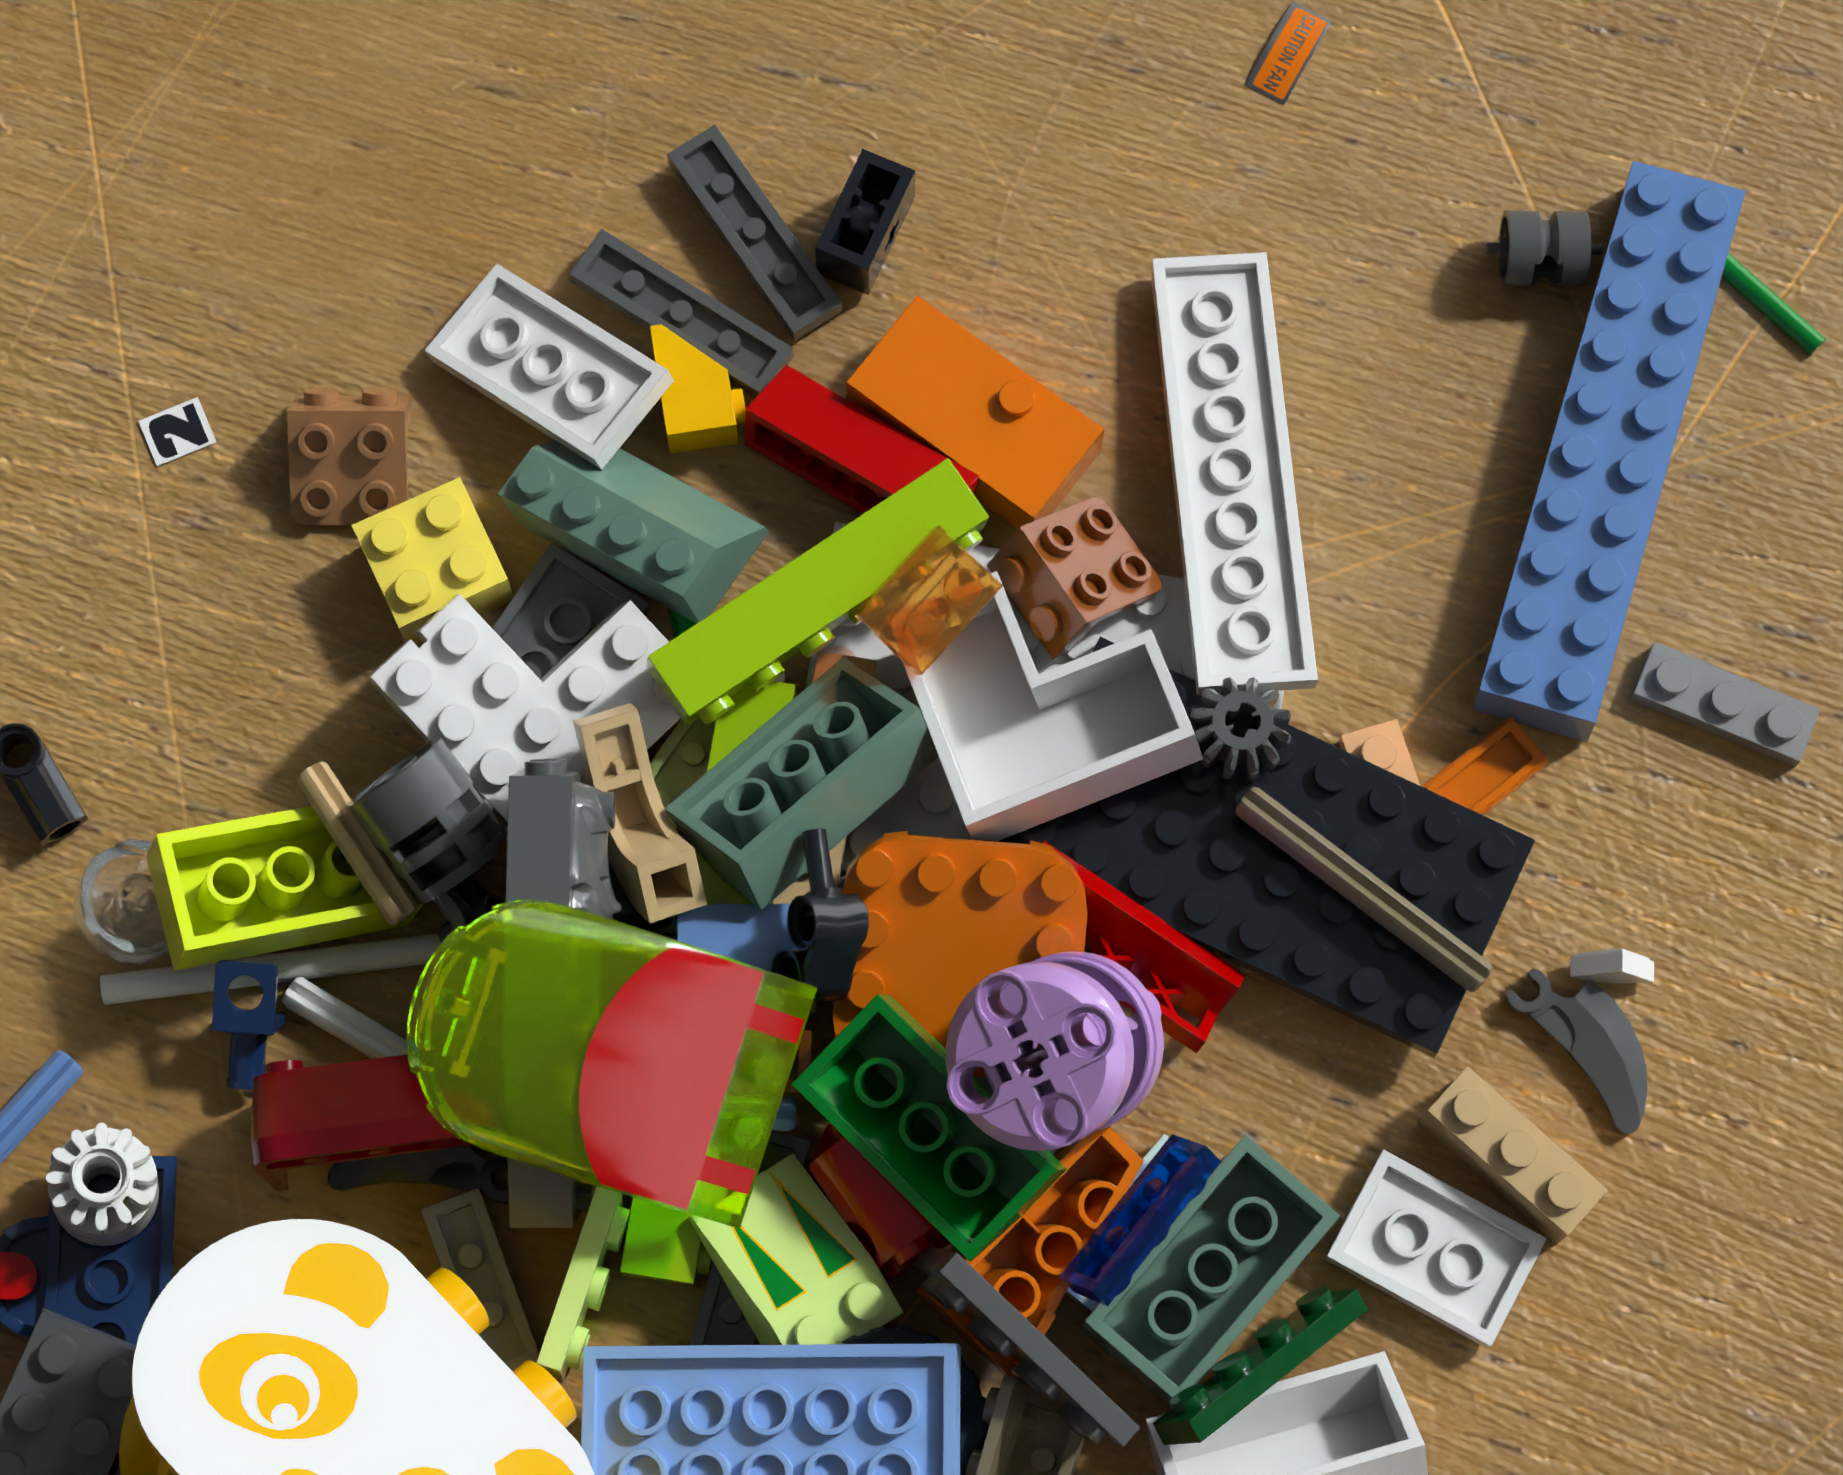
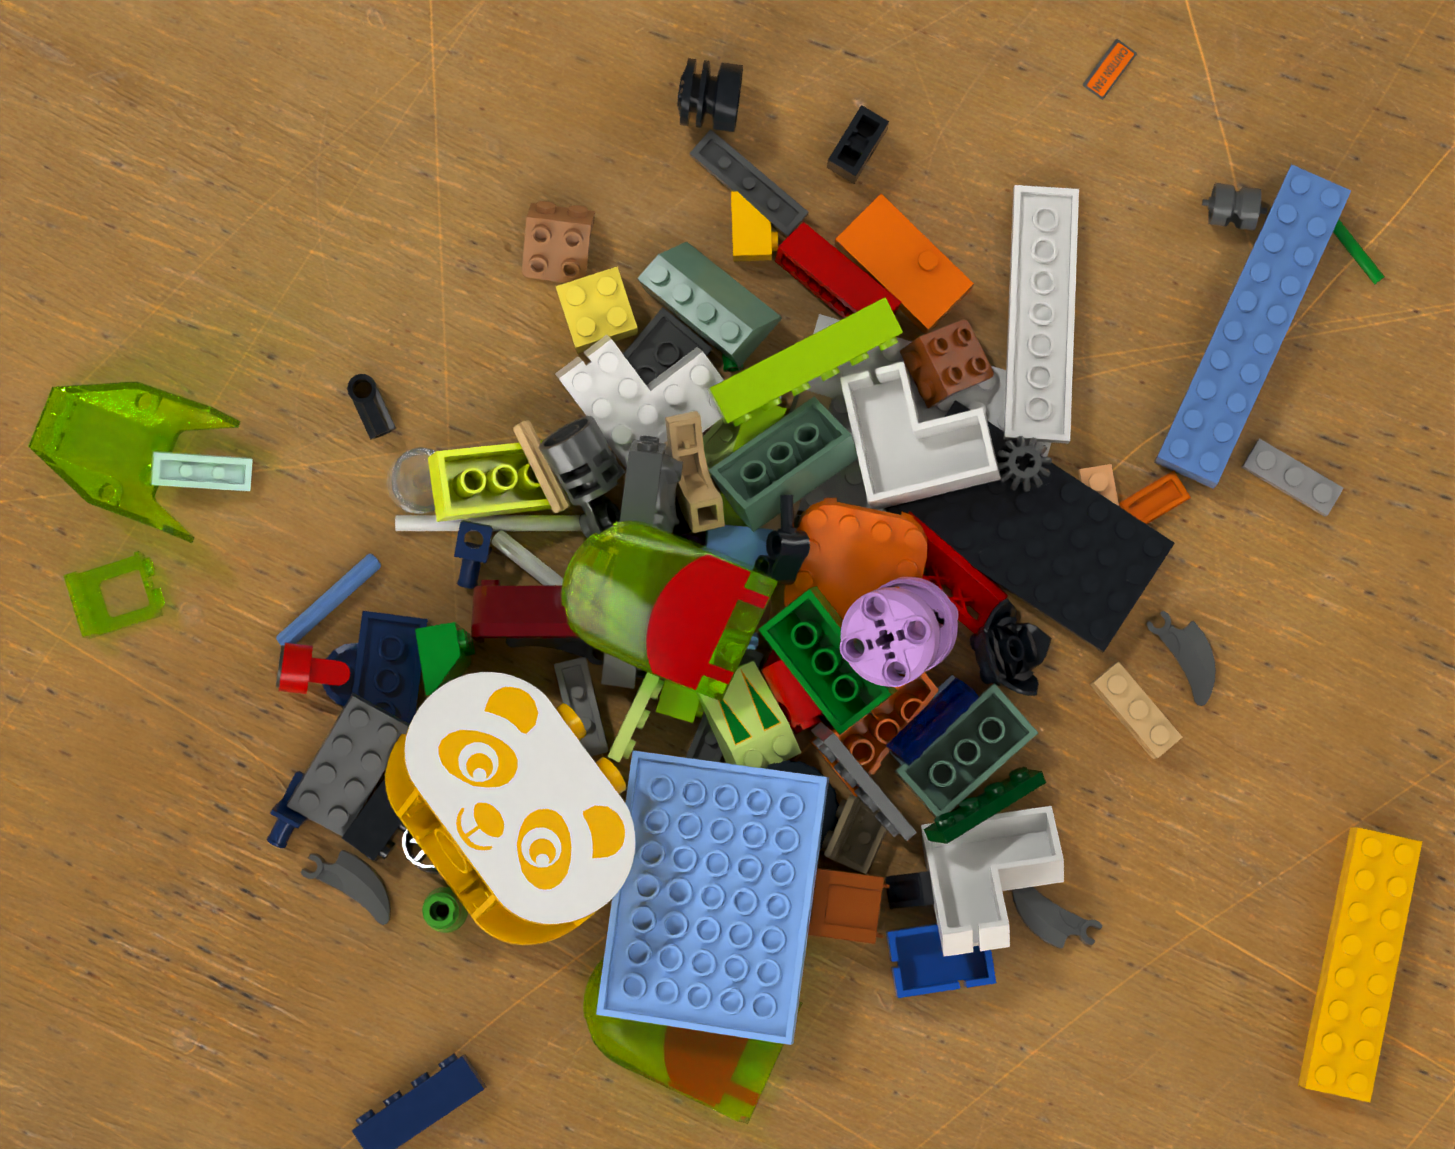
camera: 10 degrees right, 10 degrees up
(107, 1216) = (374, 641): white gear -> none
(177, 431) = (463, 214): sticker -> none
(201, 1196) = (443, 654): none -> green slope
(549, 366) = (672, 206): white plate -> none
(594, 167) = (710, 95): none -> black wheel
(754, 232) = (795, 140): dark grey plate -> none
(928, 600) = (864, 375): clear orange plate -> none
(1263, 1073) = (1009, 650): none -> black brick
(1363, 889) = (1077, 559): dark tan axle -> none
(1435, 1249) = (1087, 754): white plate -> none
(1612, 967) = (1206, 615): white tile -> none

